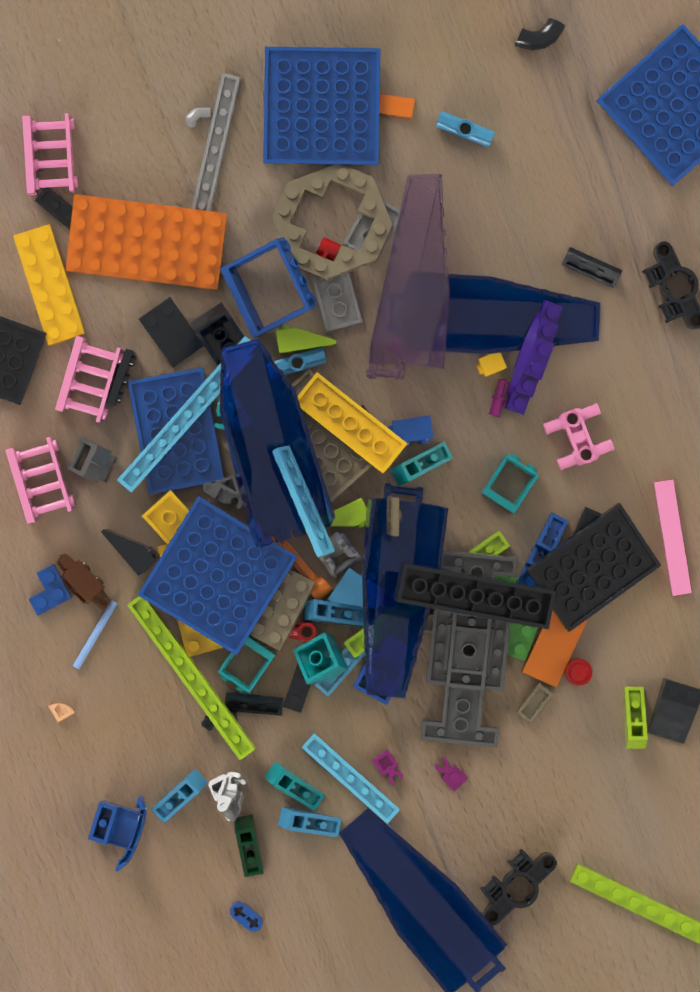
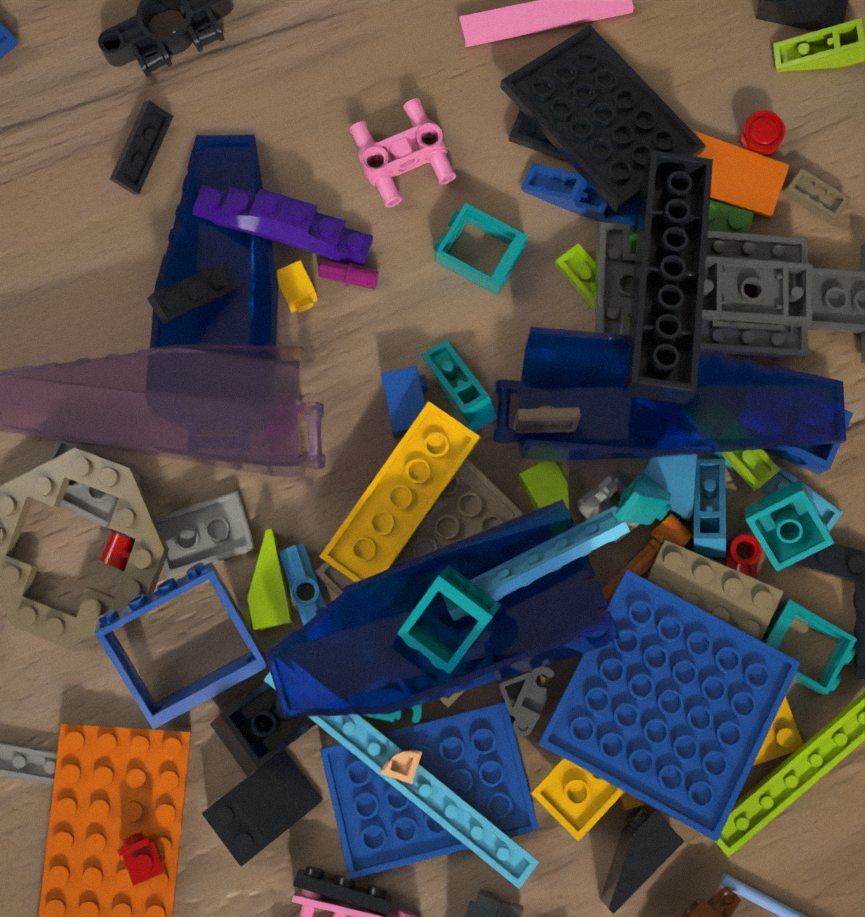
camera: 90 degrees left, 10 degrees down
(146, 261) = (142, 857): none -> red bracket
(190, 416) = (403, 765): none -> light nougat tile
(283, 458) = (467, 597): none -> teal window
(337, 569) = (643, 501): none -> teal slope
(487, 299) = (192, 293): none -> black plate

